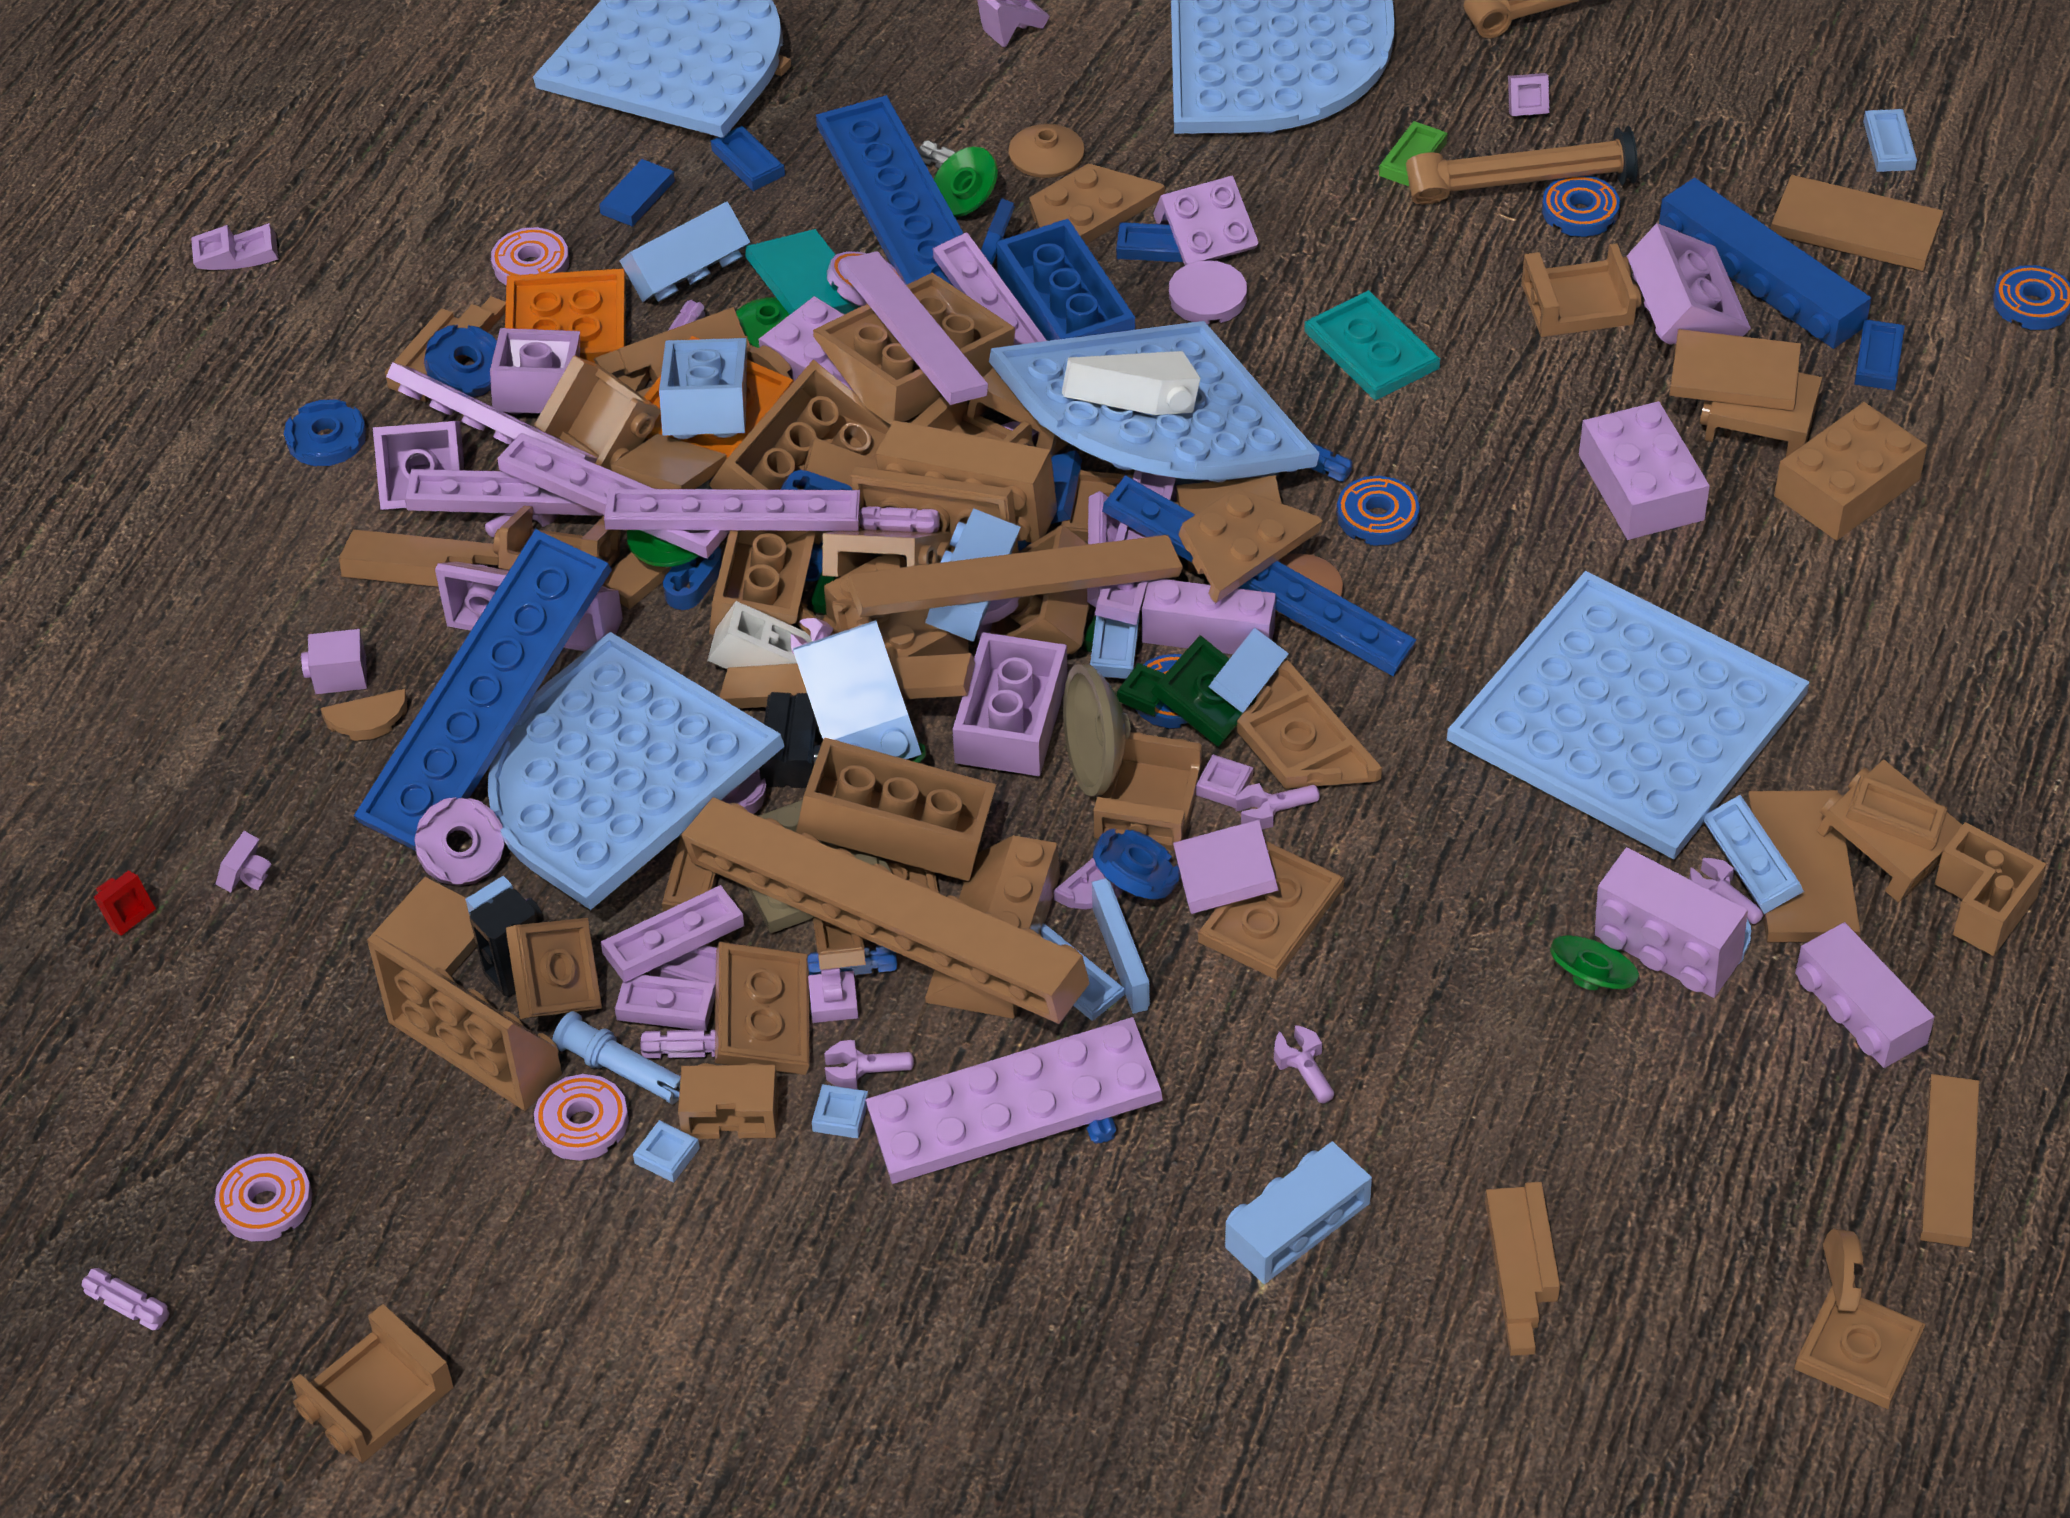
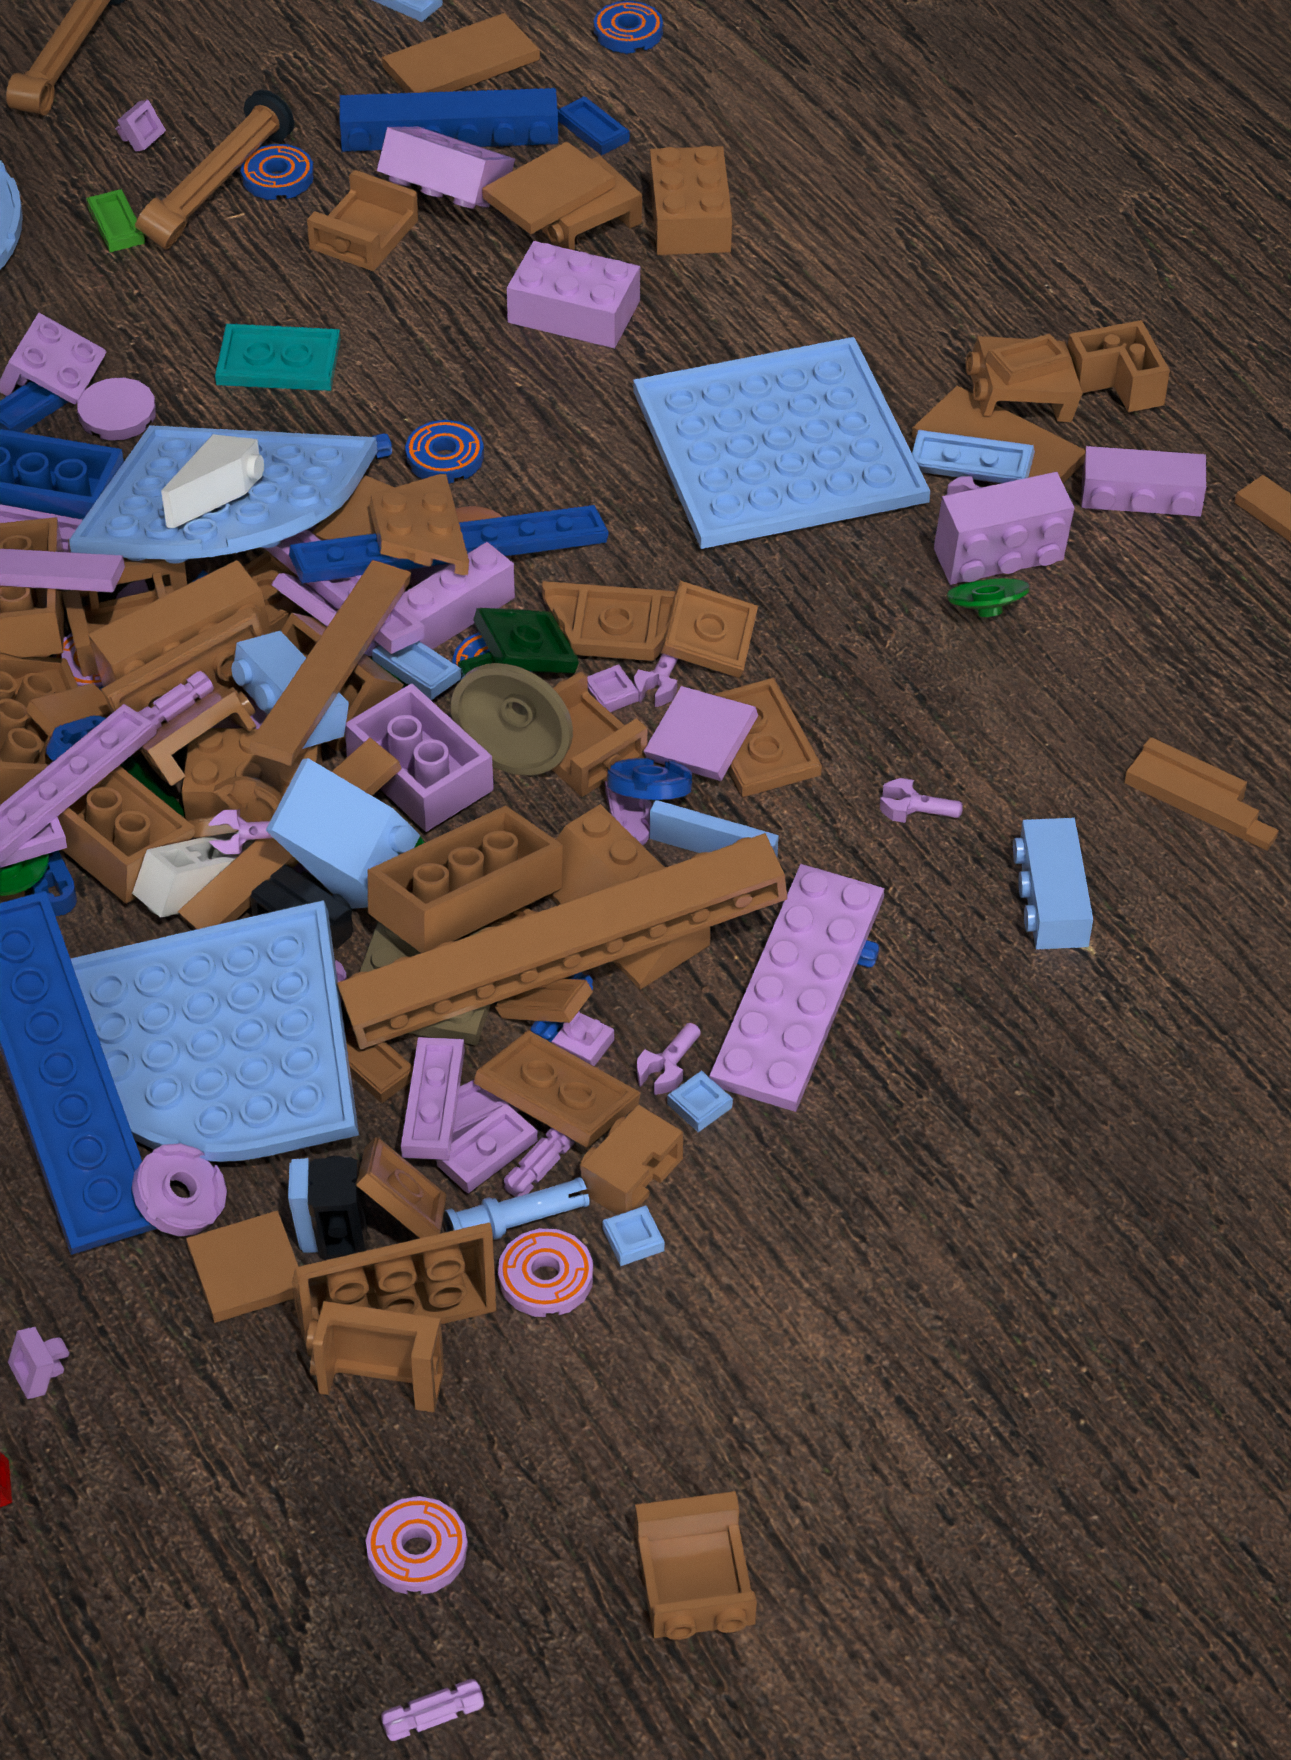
camera: 55 degrees left, 0 degrees up
(407, 1078) = (378, 1346): none -> medium nougat panel
(1248, 670) = (535, 605): light blue tile -> none
(1349, 800) = (709, 629): none -> medium nougat tile

